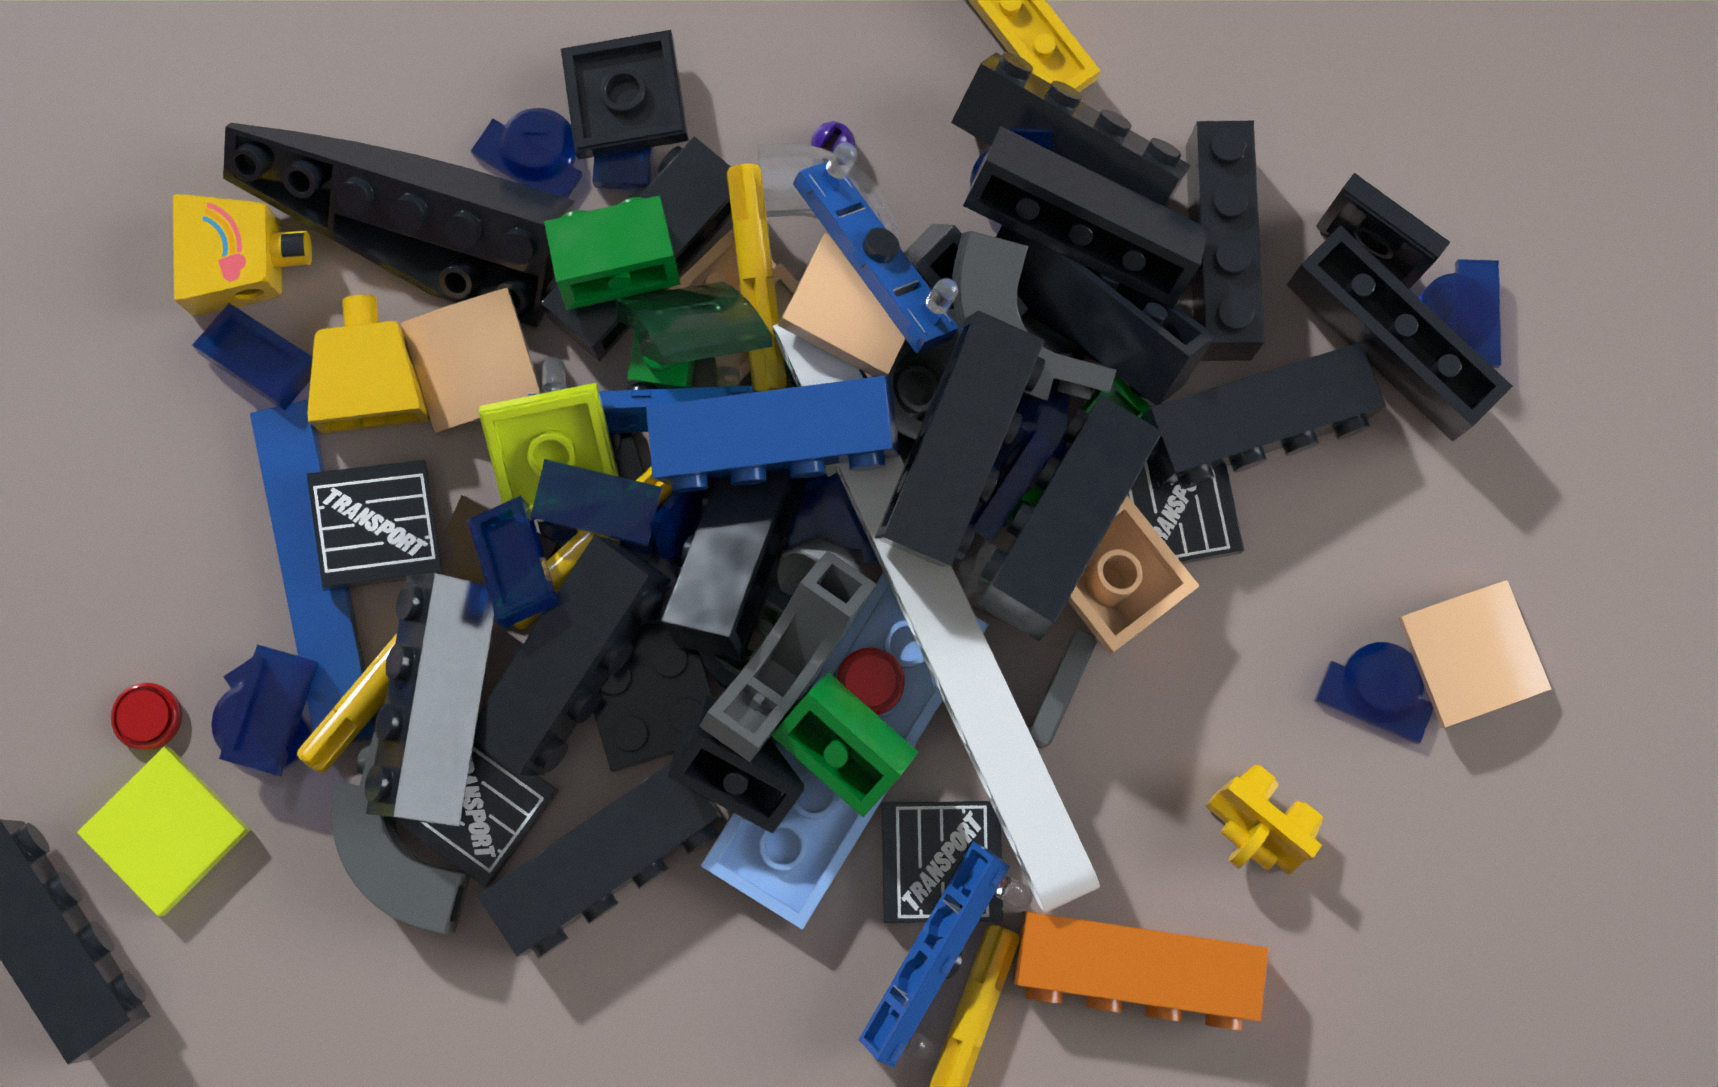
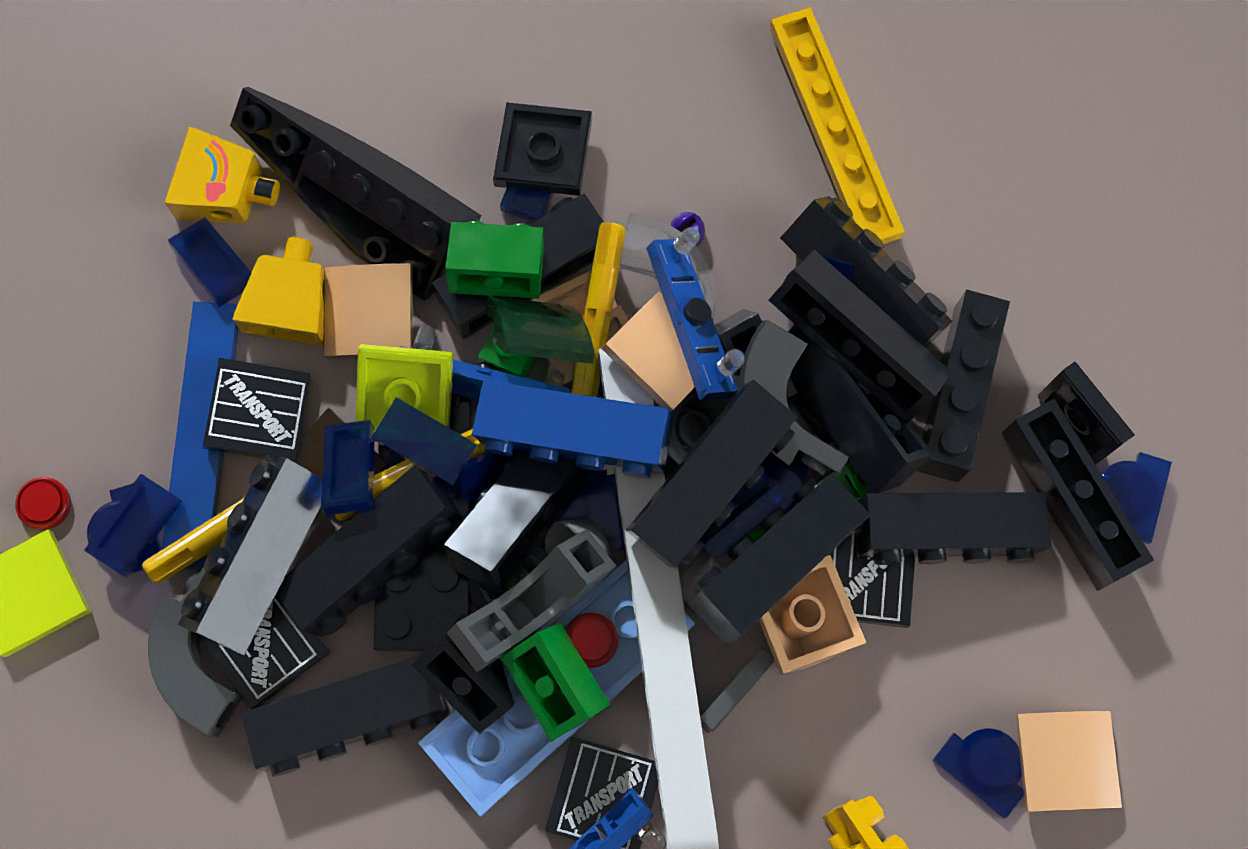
camera: 15 degrees right, 5 degrees down
(533, 150) = (463, 171): clear blue piece -> none

